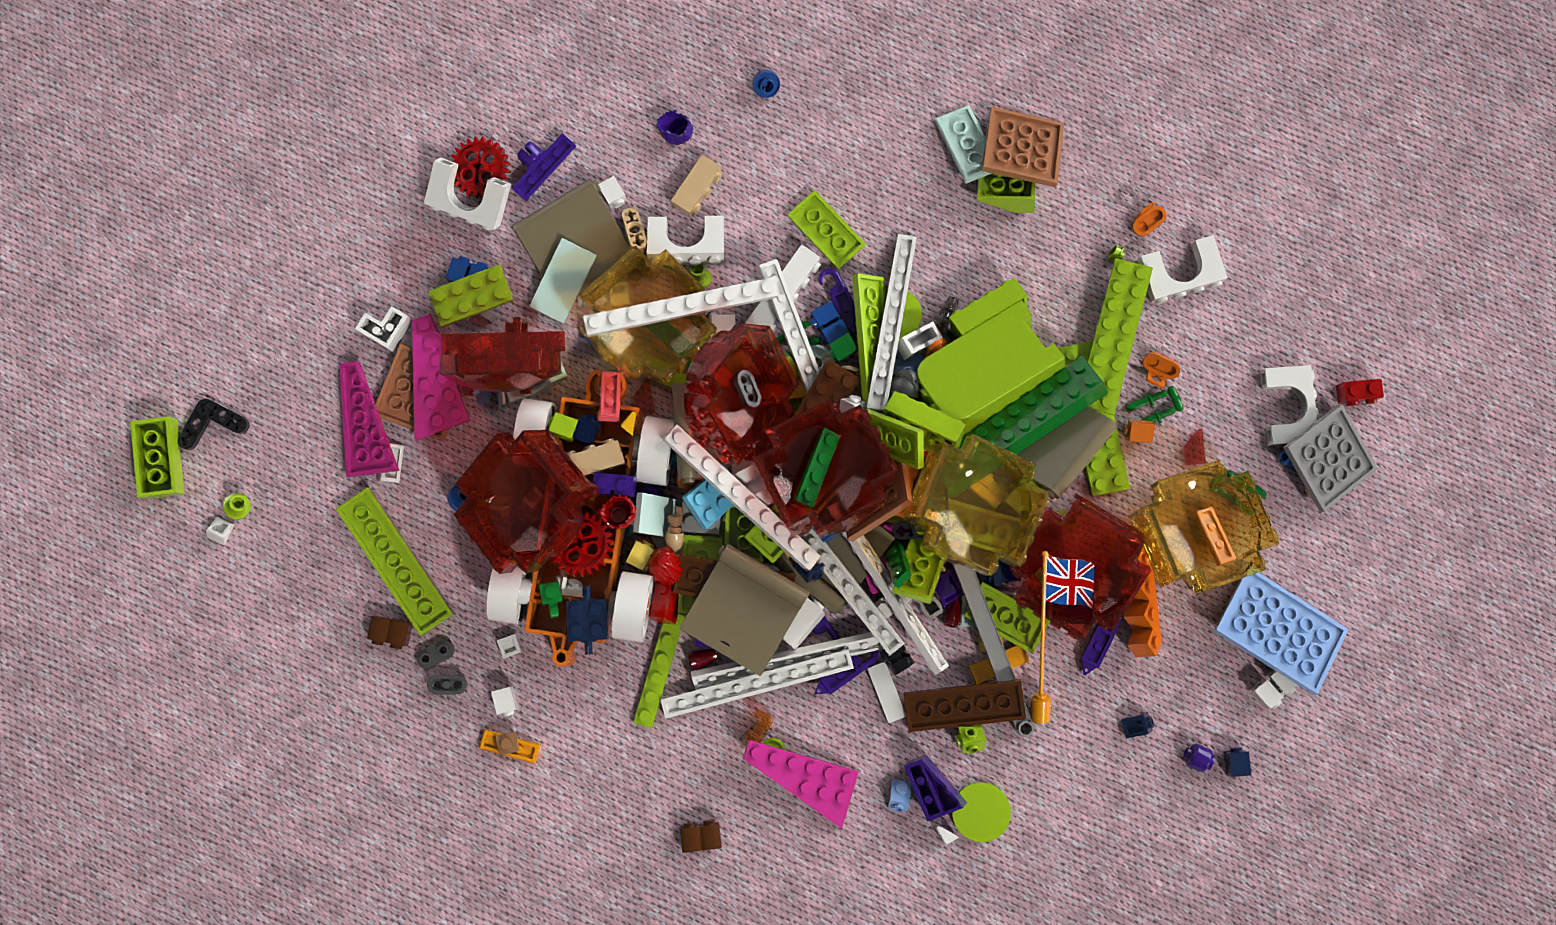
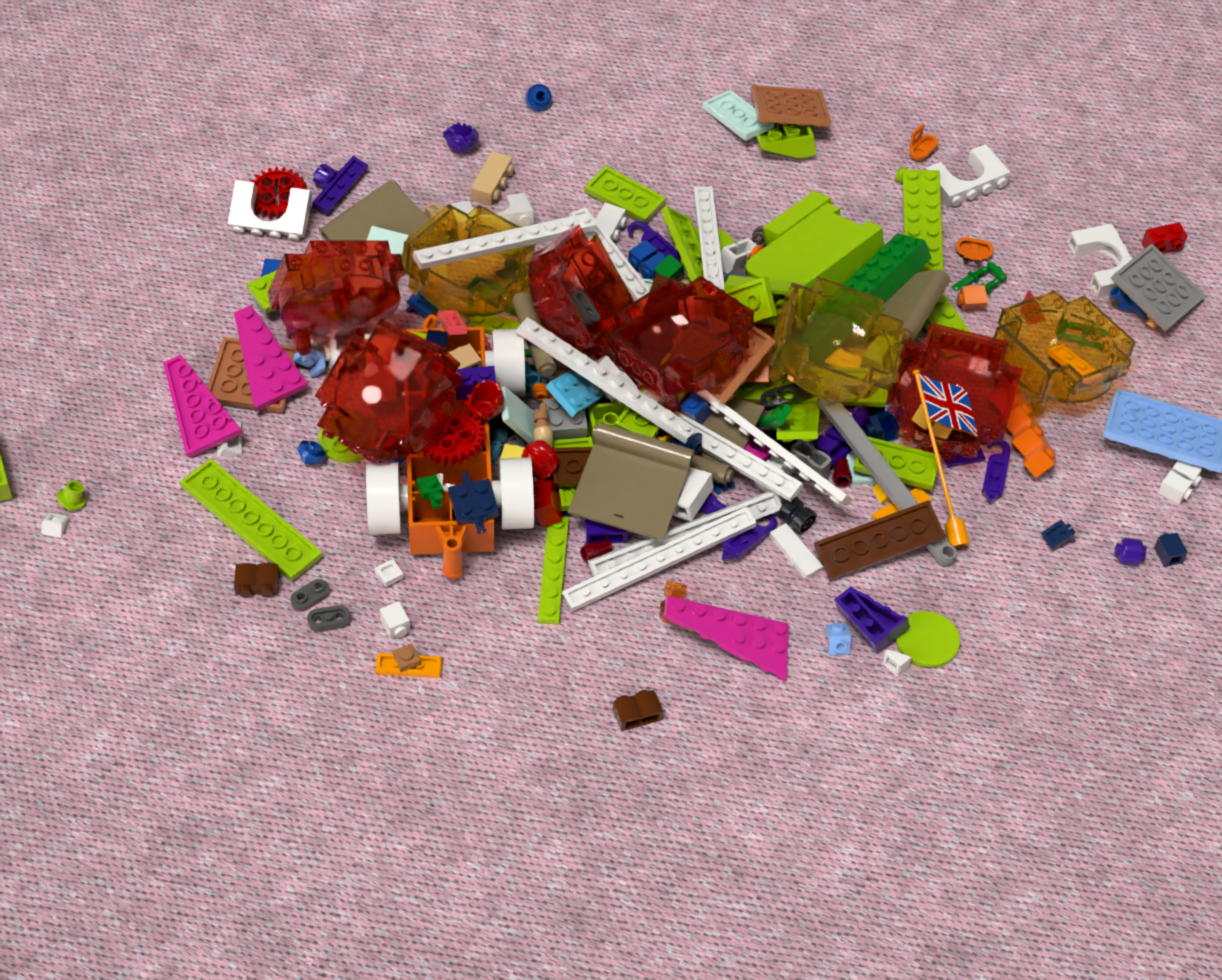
camera: 15 degrees left, 30 degrees down
(206, 417) = (29, 428): black beam -> none
(389, 331) = (207, 327): white brick -> none
(612, 192) = (414, 191): white brick -> none
(630, 423) = (477, 335): yellow slope -> none
(816, 468) = (672, 339): green plate -> none
(970, 739) = (895, 570): lime brick -> none

